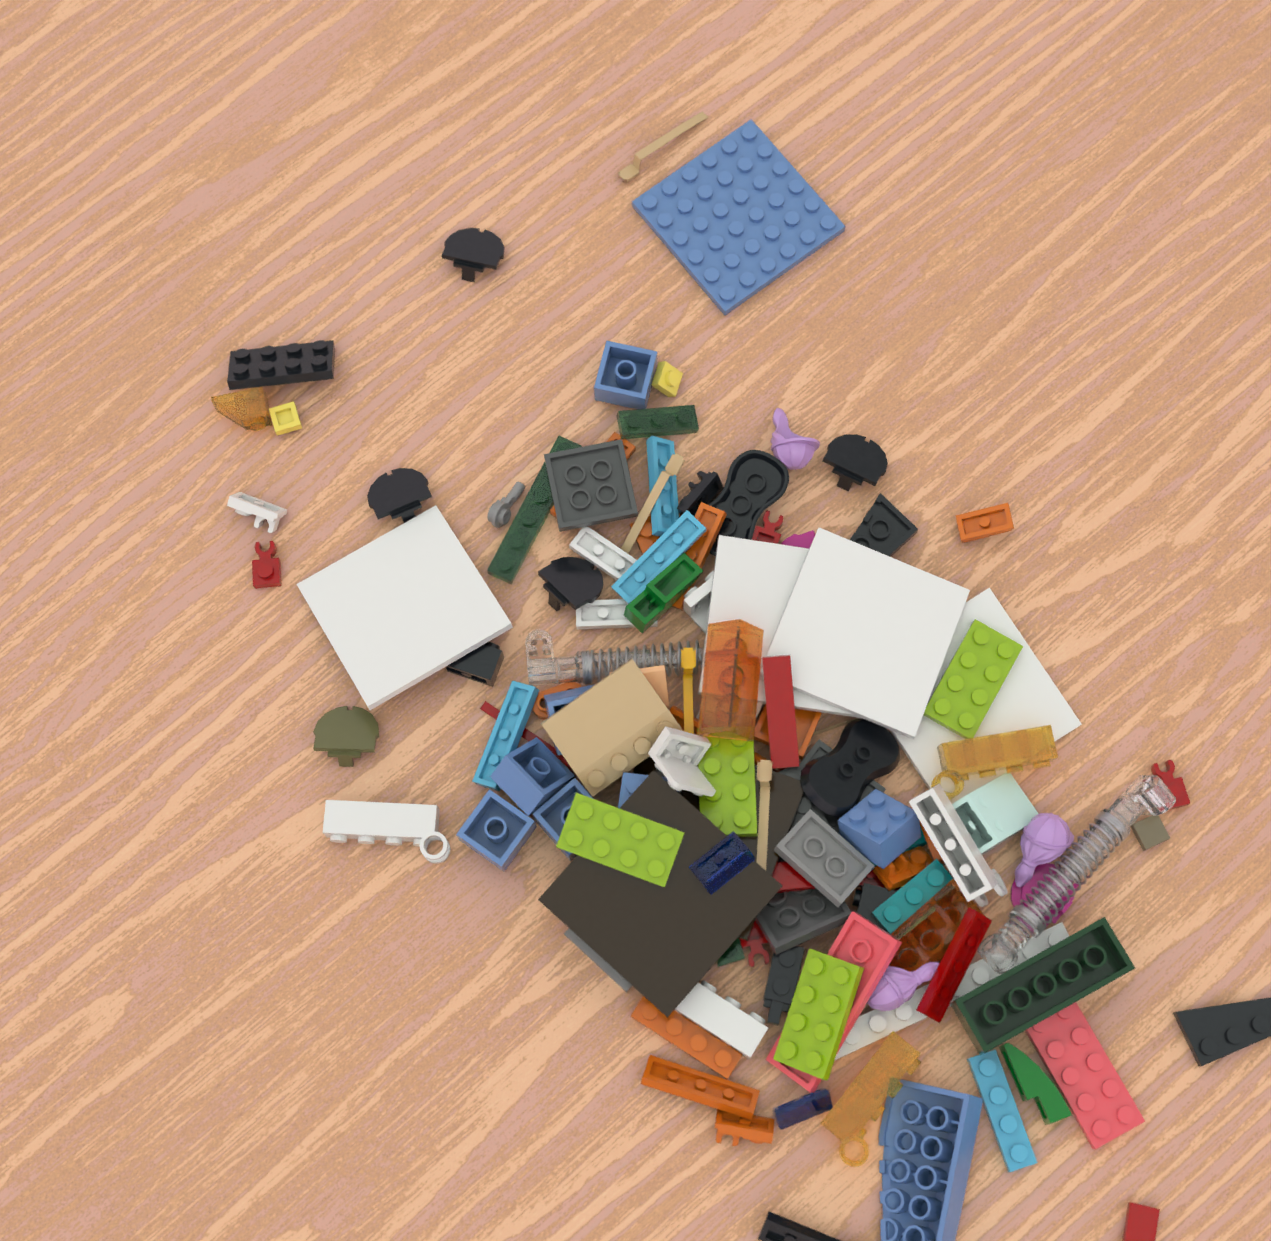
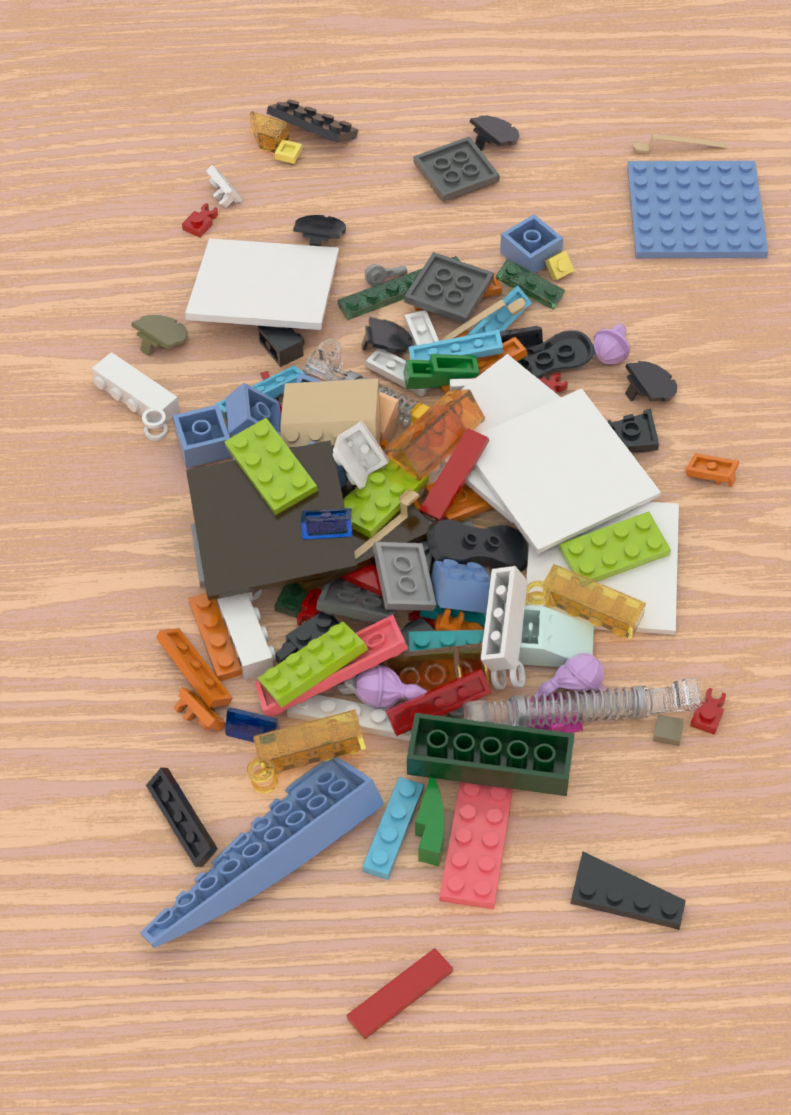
camera: 35 degrees right, 20 degrees down
(472, 325) = (456, 168): none -> dark grey plate

